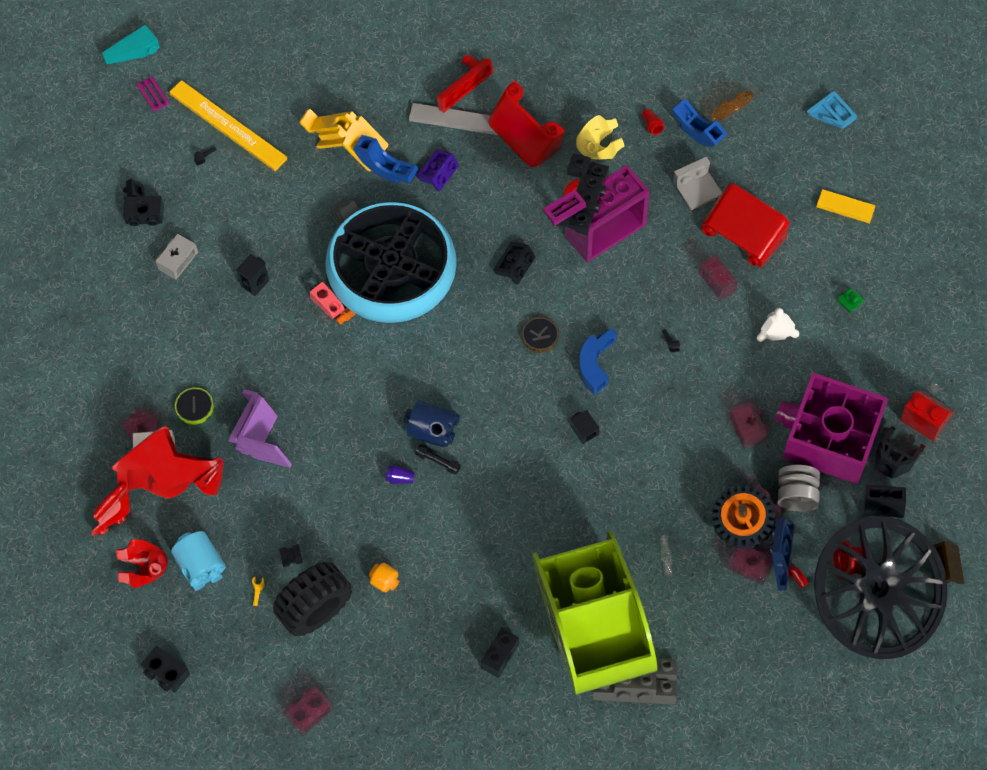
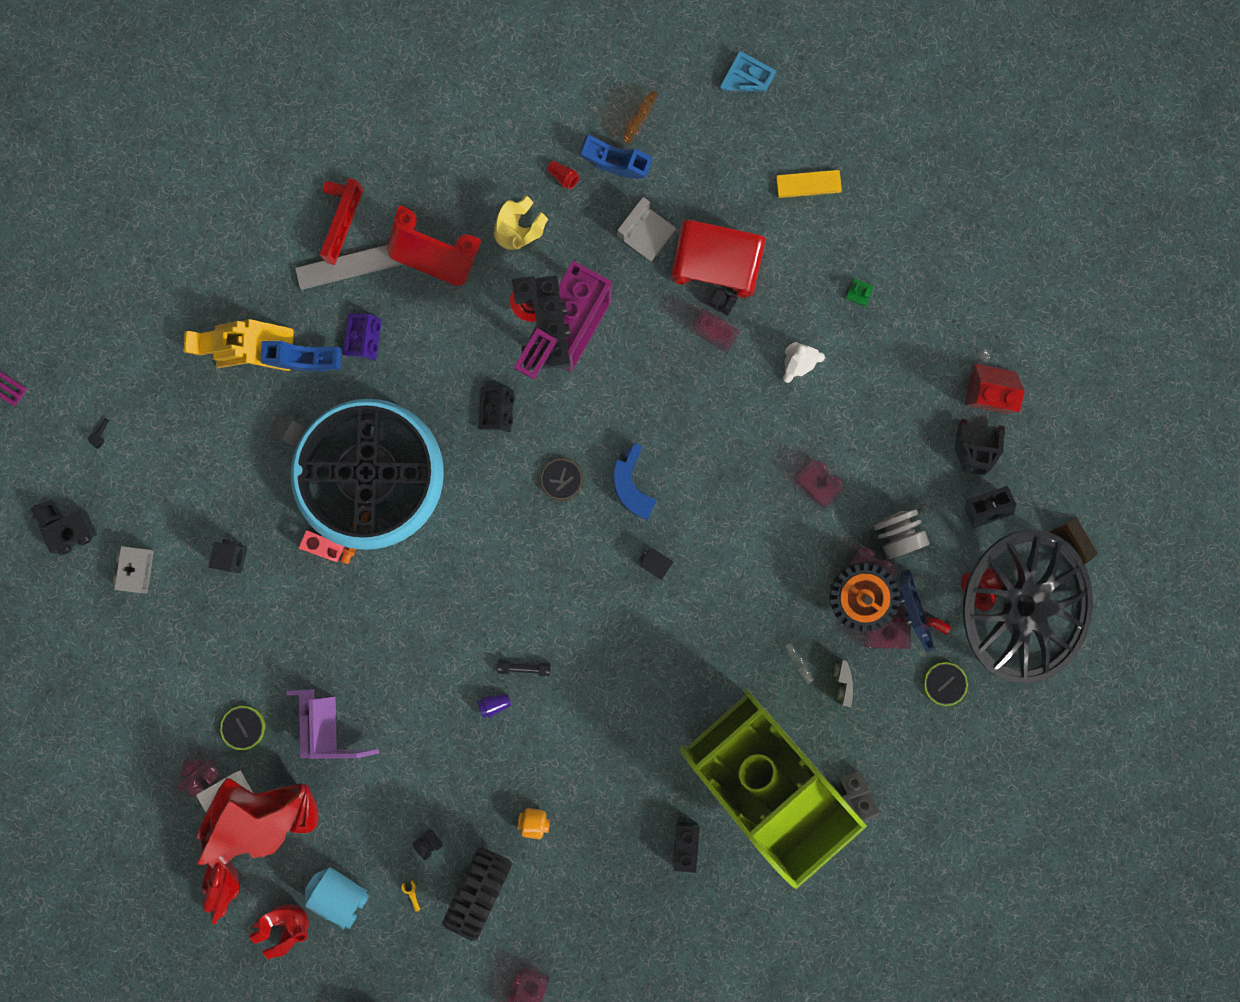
camera: 30 degrees left, 20 degrees up
(228, 125) = (106, 386): yellow tile -> none
(425, 420) = (500, 637): dark blue cylinder -> none
(672, 345) = (703, 428): black hand -> none
(697, 580) = (843, 675): none -> light grey slope
(734, 259) = (723, 301): none -> black wheel
(783, 627) = (945, 683): none -> black tile
(832, 427) = (911, 456): magenta brick -> none

